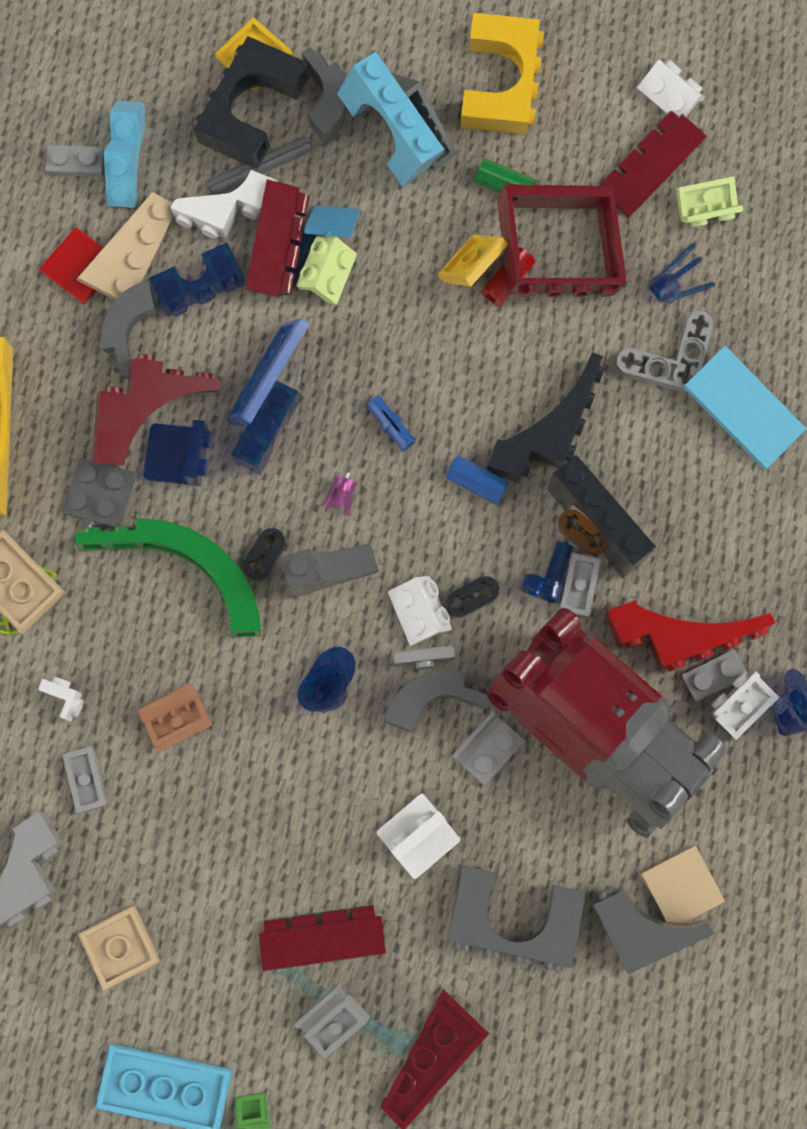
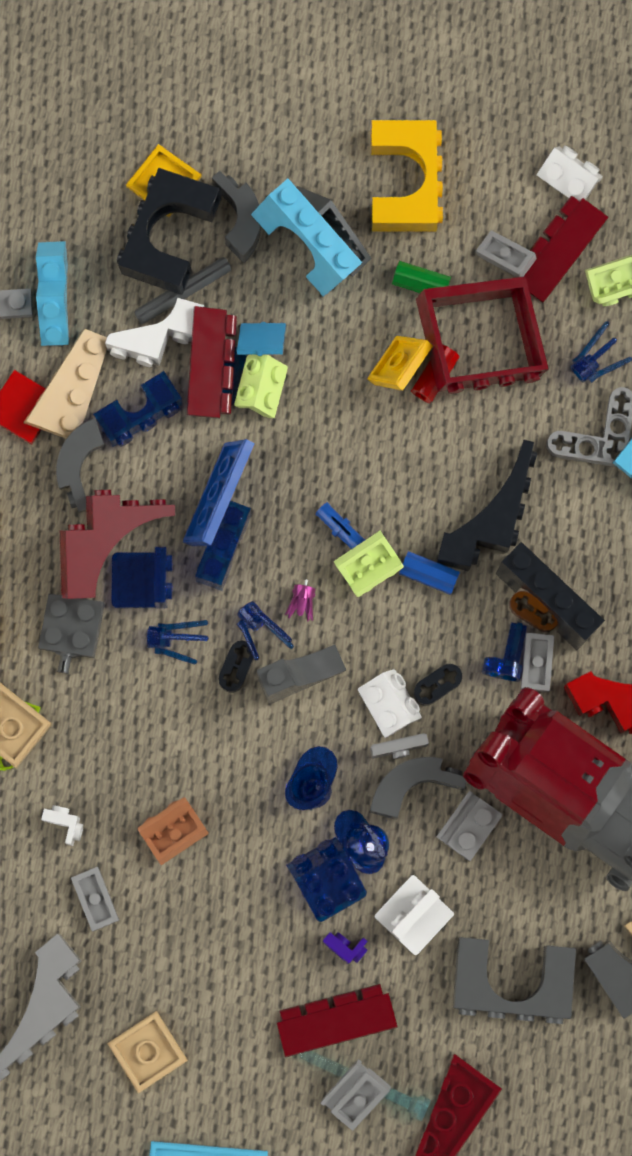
camera: 10 degrees left, 0 degrees up
(192, 515) = (162, 636): none -> clear blue plant
(193, 548) = (174, 670): green arch -> none
(288, 506) = (254, 618): none -> clear blue plant
(330, 787) = (327, 879): none -> clear blue bracket
(334, 858) = (340, 944): none -> dark purple bracket
(372, 752) = (363, 843): none -> clear blue piece
(415, 463) = (369, 564): none -> yellowish green bracket
(596, 163) = (506, 254): none -> light grey plate

